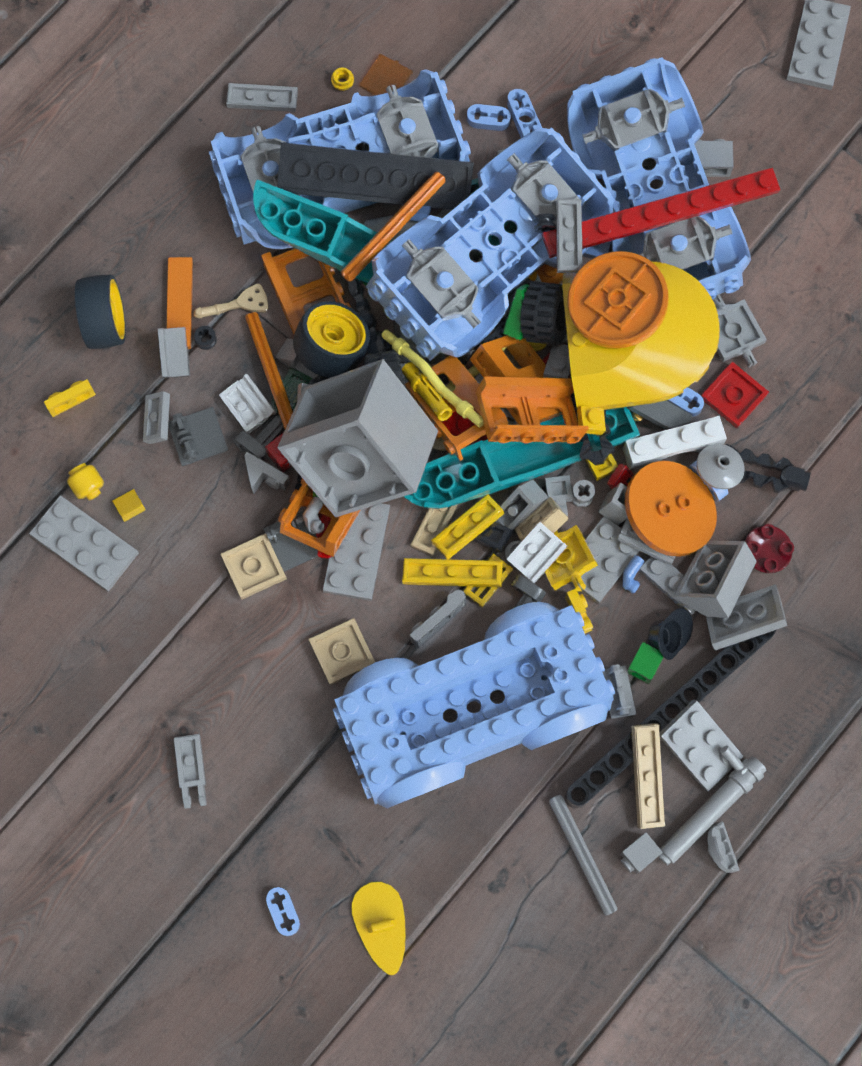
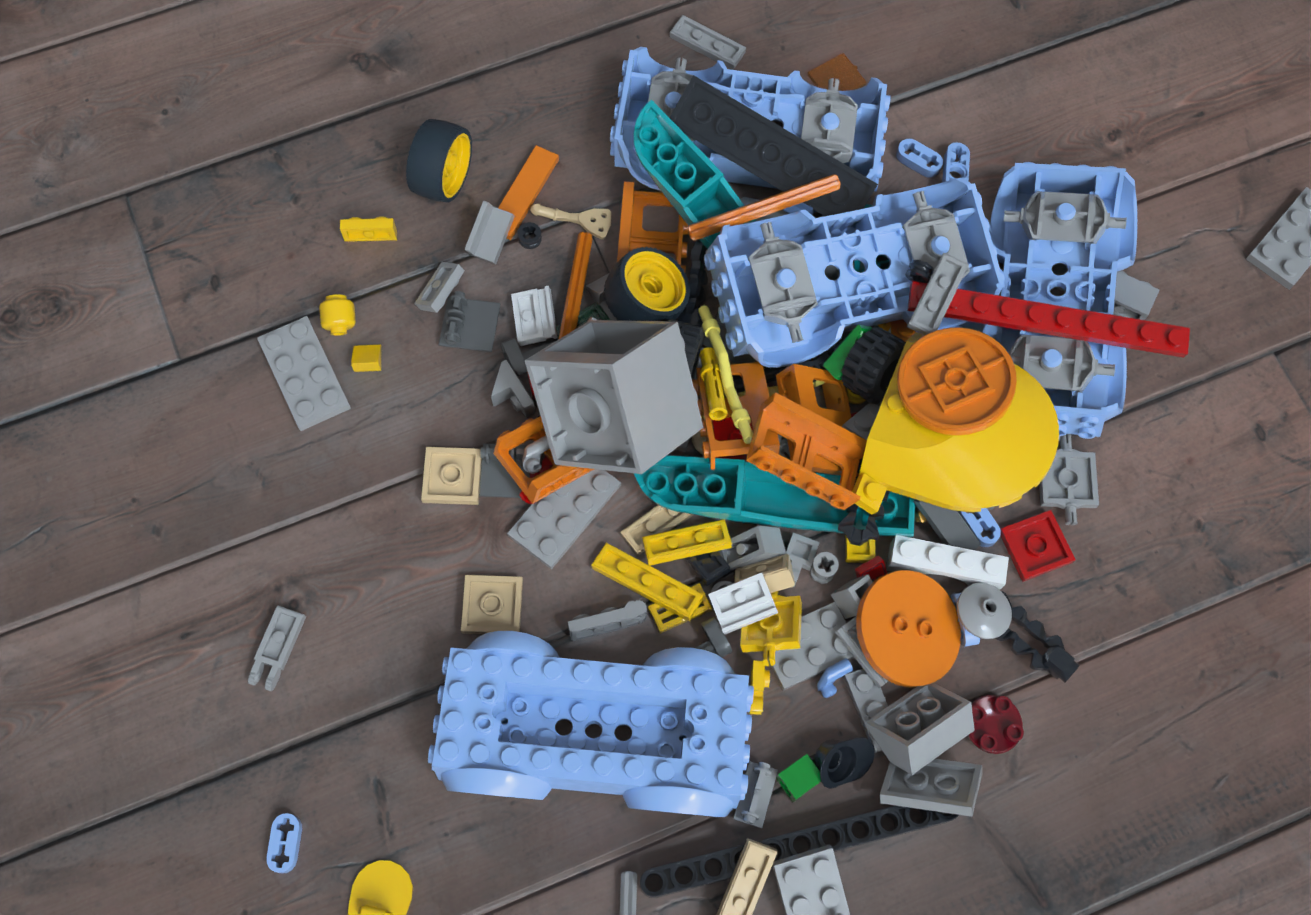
camera: 25 degrees right, 5 degrees down
(342, 73) = (793, 53): yellow plate -> none

